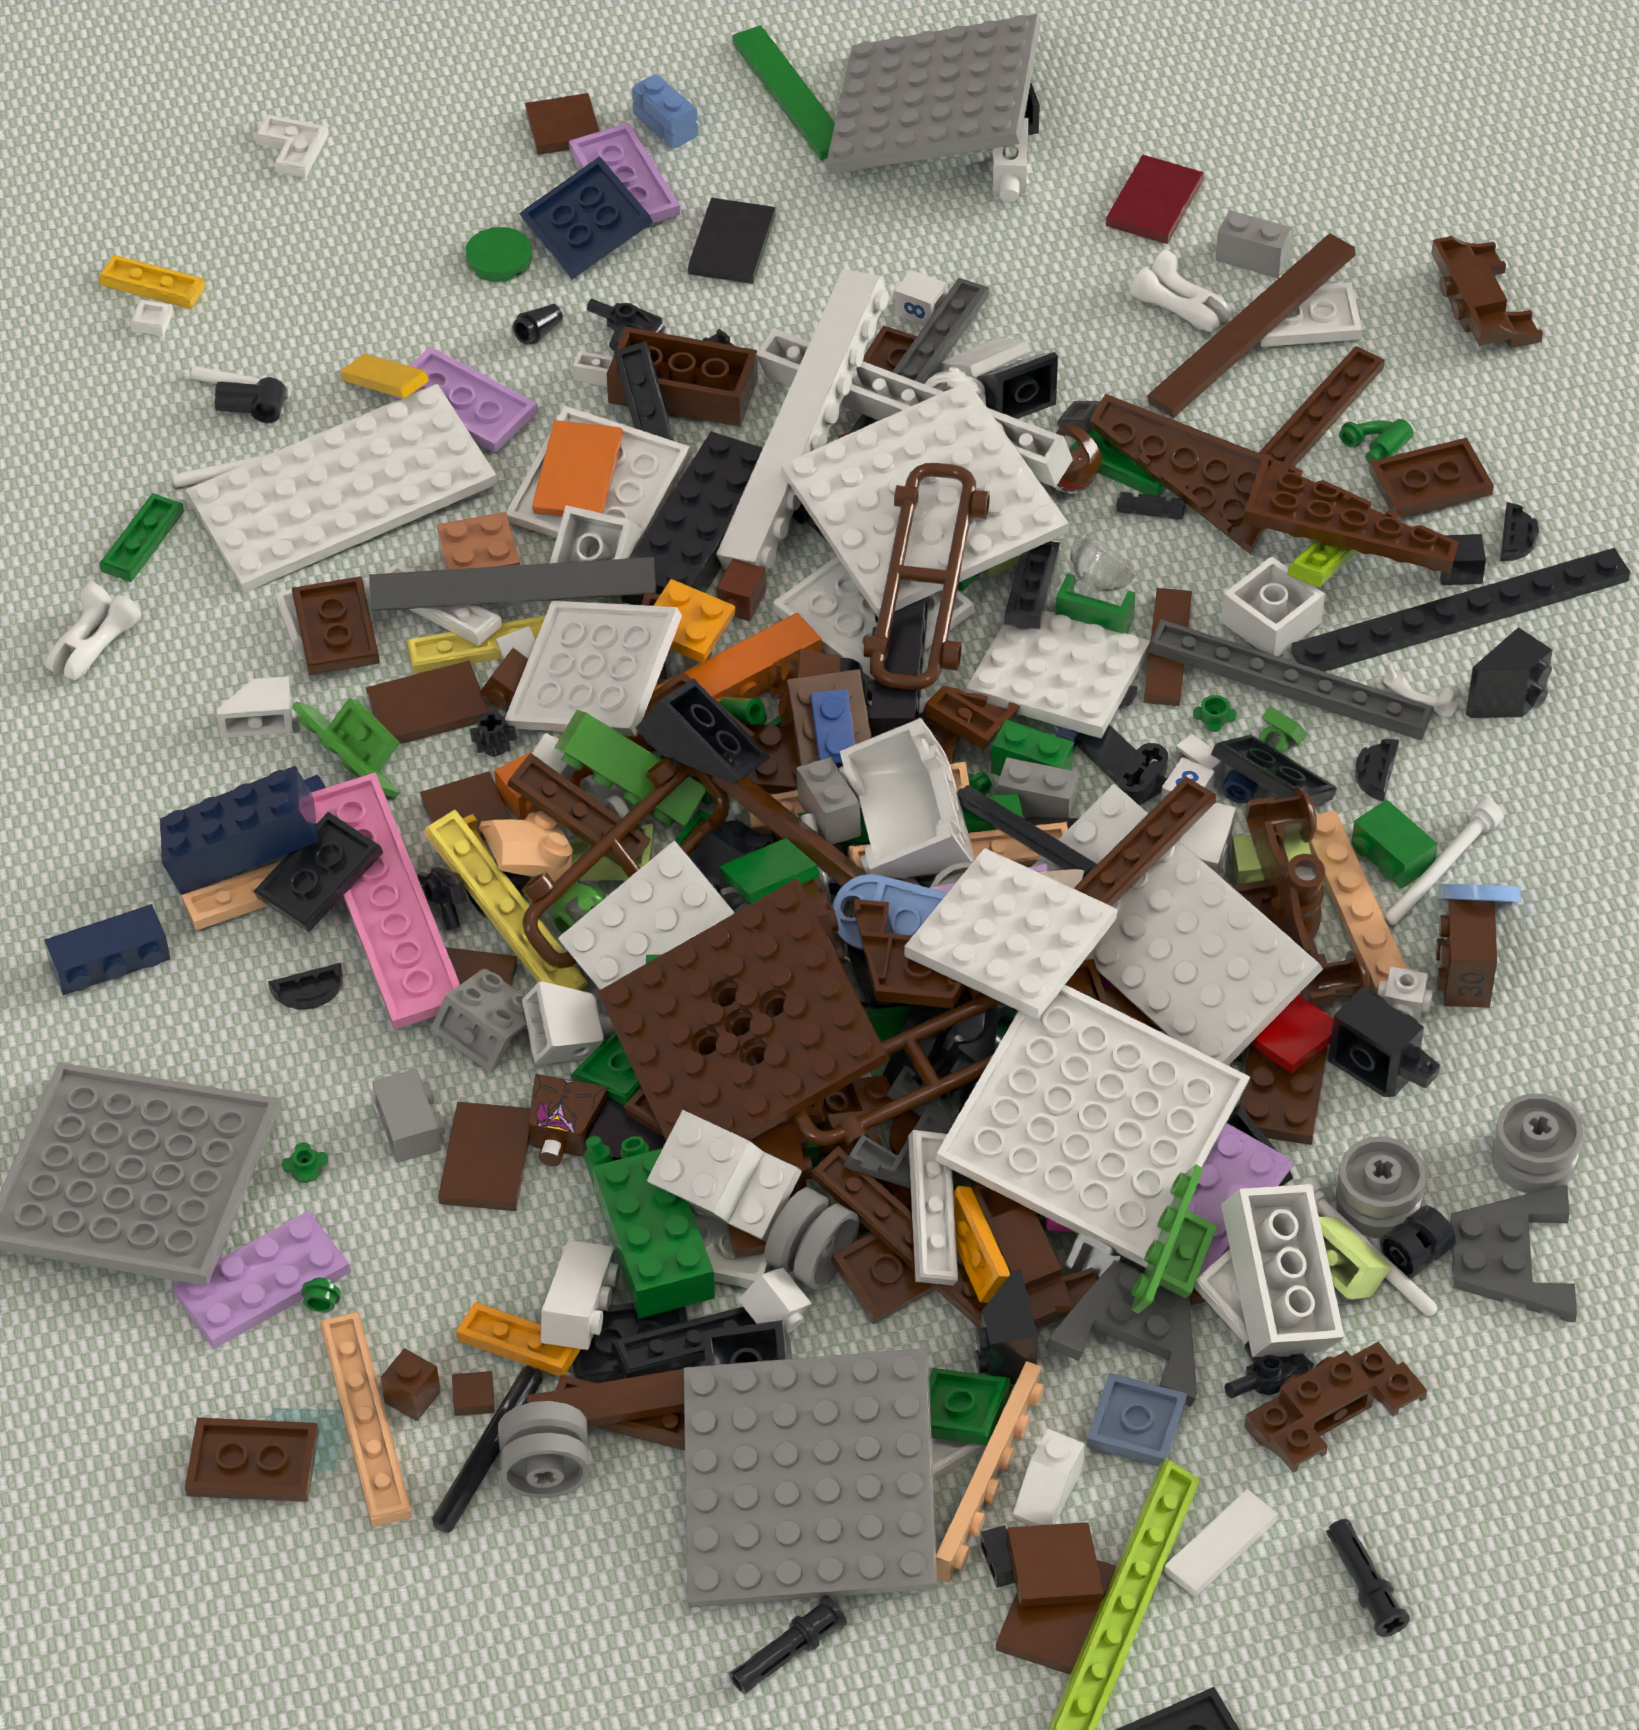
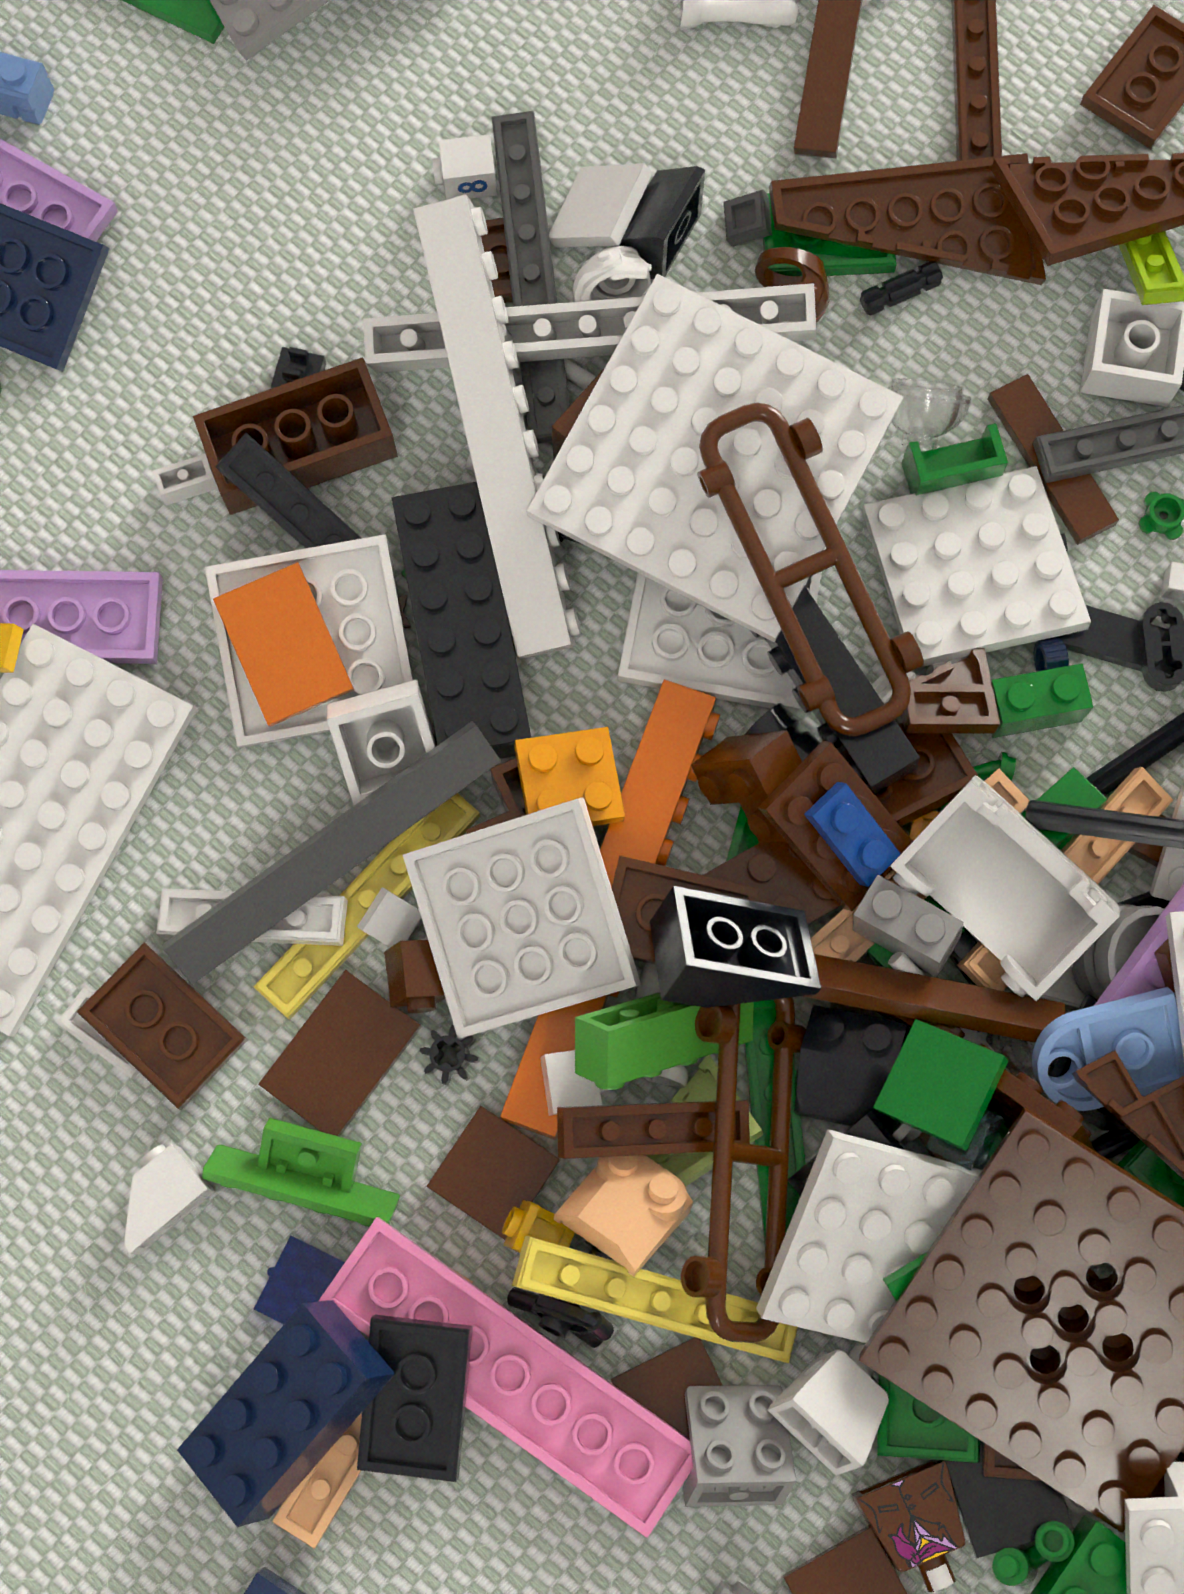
camera: 35 degrees left, 25 degrees up
(308, 988) = (502, 1535): black tile -> none
(477, 542) = (252, 821): nougat brick -> none
(536, 323) = (72, 462): black cone -> none
(575, 904) = (742, 1231): bright green head -> none
(623, 316) = (172, 392): black piece -> none
(731, 240) = (201, 211): black tile -> none
(743, 587) = (570, 680): copper brick -> none
(745, 709) = (711, 855): green plant -> none
(1032, 586) = (895, 504): black plate -> none
(1041, 788) = (1076, 742): light grey brick -> none
(1391, 438) = (1076, 59): green plant -> none

